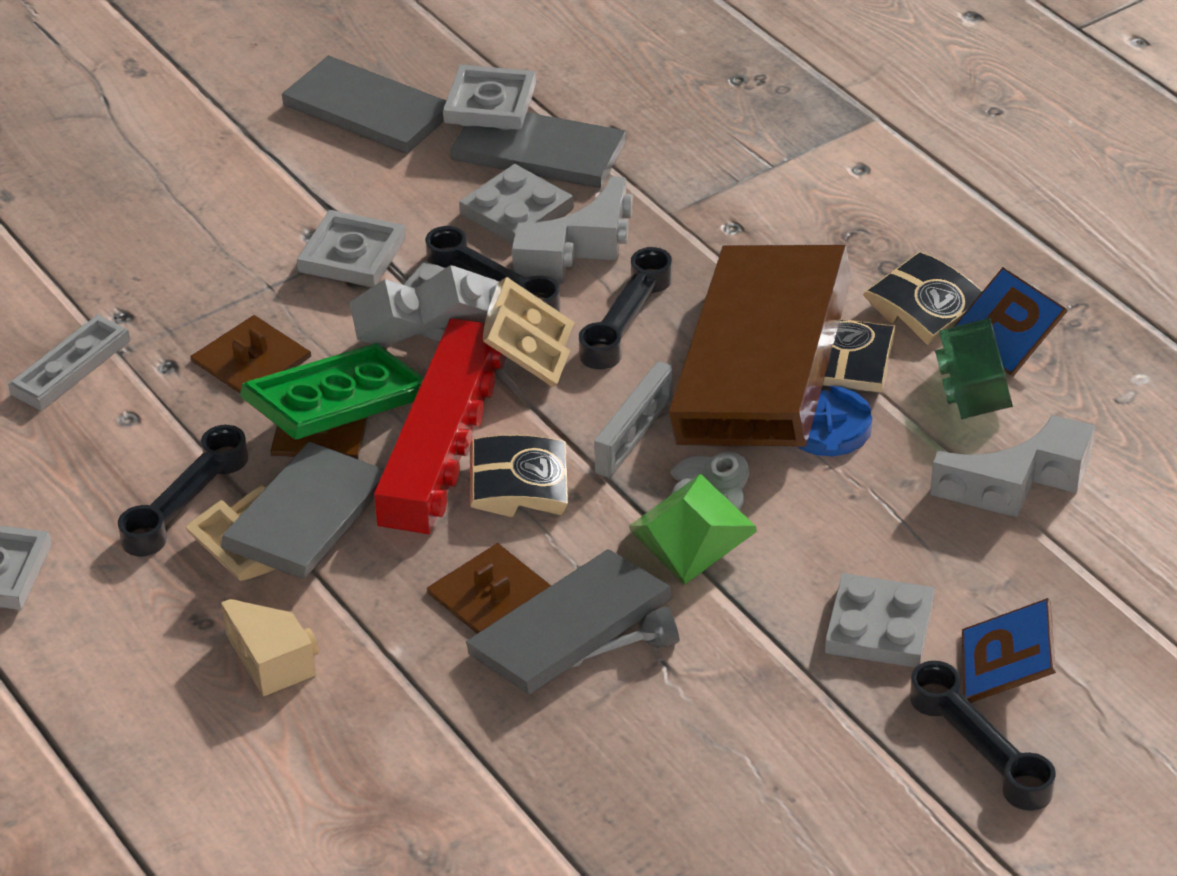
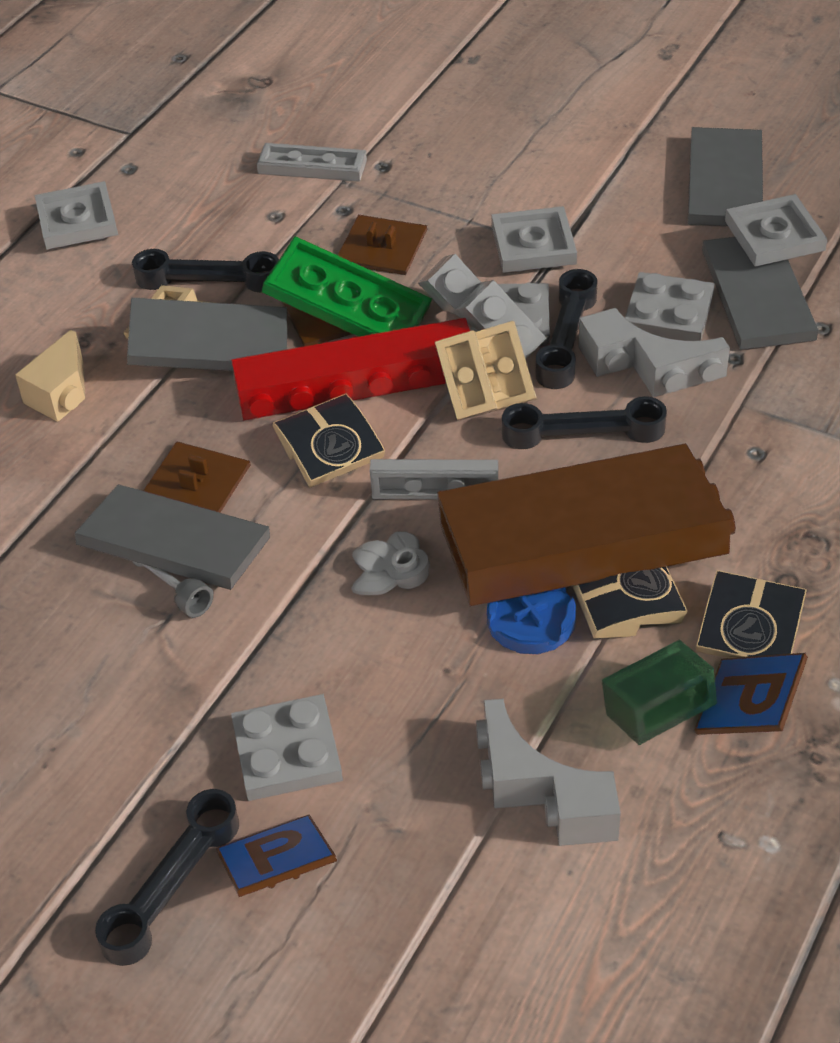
camera: 65 degrees right, 5 degrees up
(692, 529) = (319, 568): bright green slope -> none

